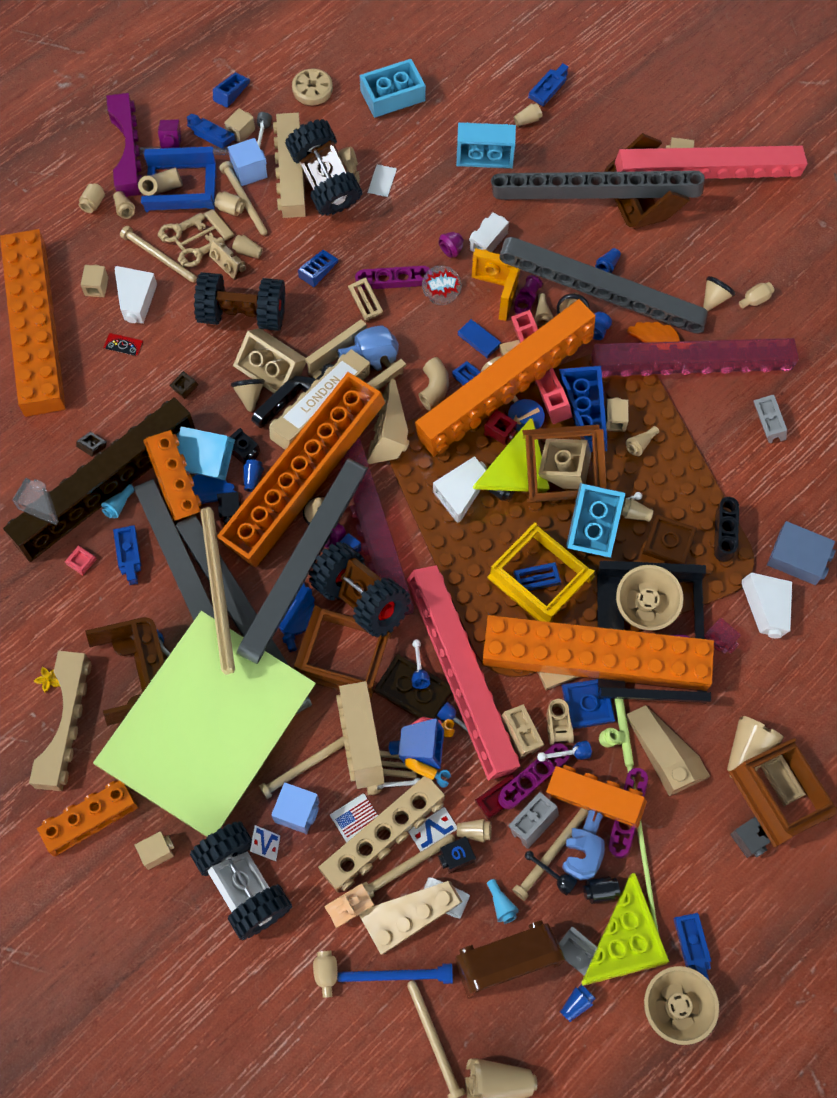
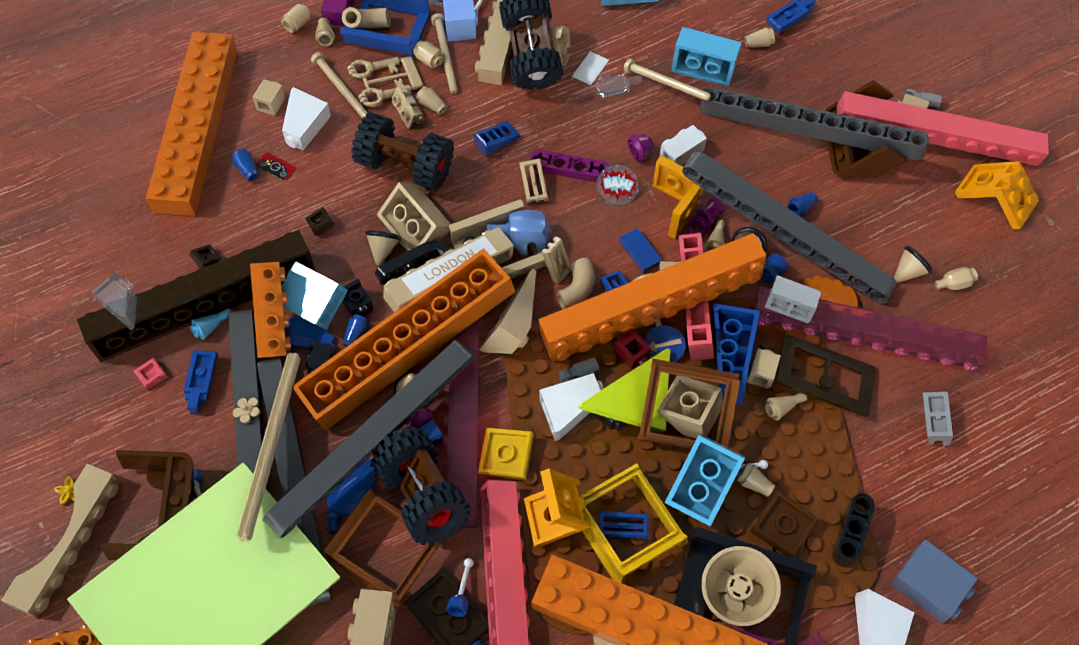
camera: 15 degrees right, 5 degrees down
(95, 349) = (245, 164): none -> blue cone
(182, 567) = (246, 410): none -> tan plant
(410, 191) = (615, 85): none -> clear piece
(410, 366) = (554, 263): none -> tan tile
(419, 545) = (506, 453): none -> yellow tile
(420, 170) = (631, 66): none -> tan bar
(460, 457) = (579, 370): none -> dark grey bar
(481, 566) = (563, 503): none -> light orange bracket
(626, 348) = (793, 299): none -> light grey hinge
(671, 412) = (823, 392): none -> dark brown door
(698, 137) = (934, 100): none -> light grey bar
(777, 199) = (1007, 183): none -> light orange bracket

